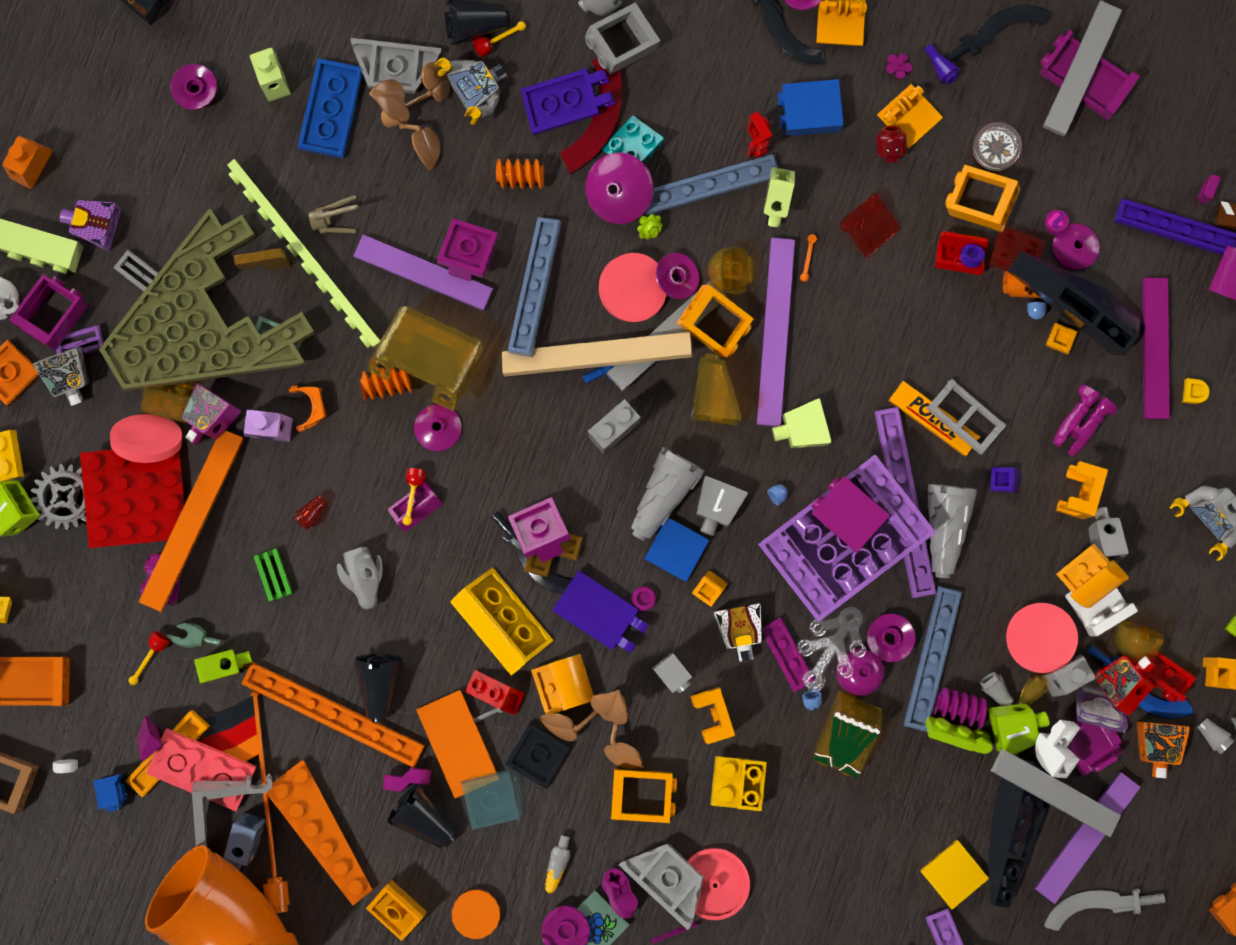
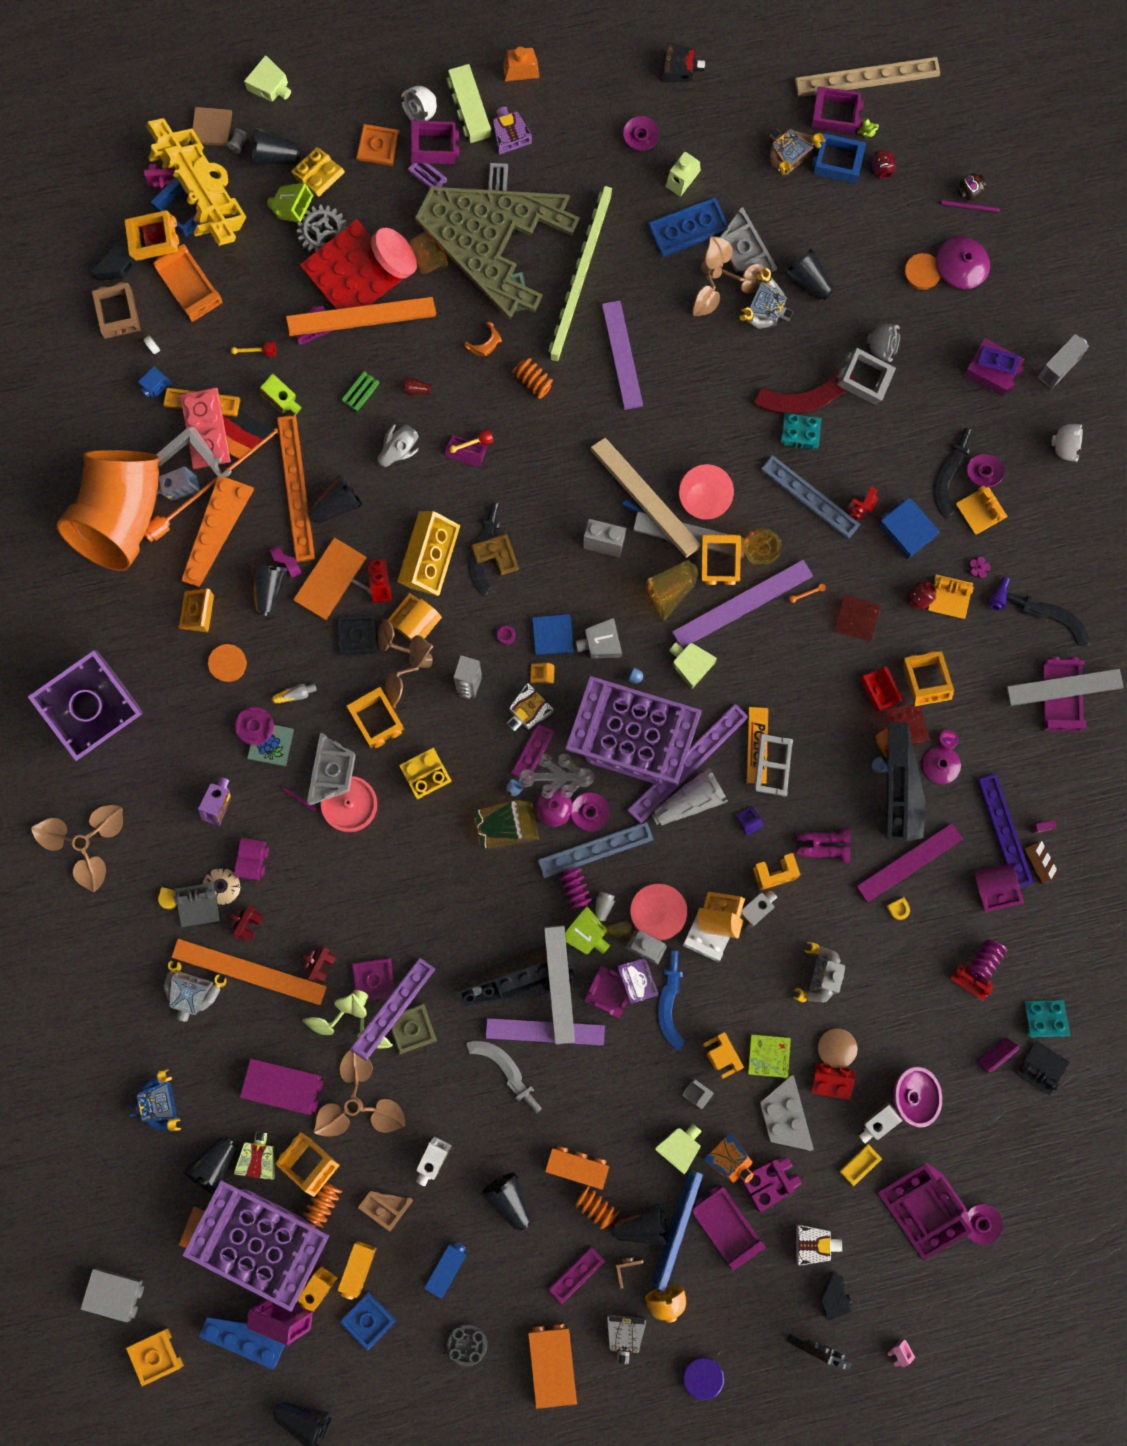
camera: 55 degrees right, 5 degrees down
(64, 374) = (401, 178): torso -> none
(148, 738) = (203, 383): magenta slope -> none
(195, 637) = (287, 370): sand green hand -> none
(208, 414) = (435, 281): torso -> none
(267, 426) = (452, 321): lavender torso -> none
(270, 259) = (563, 252): pearl gold tile -> none
(322, 216) = (612, 268): dark tan plant -> none
(429, 353) = (571, 391): clear yellow windscreen -> none
(441, 439) = (529, 439): magenta dish -> none
(467, 250) = (655, 370): magenta panel -> none
(484, 45) = (799, 294): hinge -> none
(490, 800) = (307, 622): clear light blue tile -> none
(521, 174) = (729, 372): orange piece -> none
(534, 287) = (662, 429): sand blue tile -> none
(540, 530) = (504, 536): magenta panel -> none
(565, 100) = (799, 368): dark purple tile -> none
(598, 612) = (477, 611): dark purple tile -> none
(619, 893) = (306, 738): magenta piece -> none
(633, 186) = (771, 446): magenta dish -> none
(649, 226) = (754, 477): lime plant -> none
(667, 487) = (586, 599): light grey cone -> none
(684, 271) = (741, 518): magenta dish -> none
(719, 714) = (463, 730): light orange panel -> none
(779, 189) = (834, 543): yellowish green torso -> none
(849, 513) = (649, 717): magenta brick -> none
(954, 874) = (460, 958): yellow tile -> none
(958, 735) = (555, 898): lime hinge -> none
(972, 255) = (884, 696): dark purple tile -> none
(996, 147) = (969, 666): clear piece -> none
(1053, 749) = (587, 965): white brick -> none
(1061, 338) = (871, 795): light orange tile -> none
(1126, 682) = (666, 984): torso -> none
(1137, 641) = (699, 977): clear yellow cylinder -> none
(1161, 745) = (641, 1040): torso -> none
(1170, 679) = (690, 1013): red bracket -> none
(1215, 735) = (672, 1075): light grey cone -> none

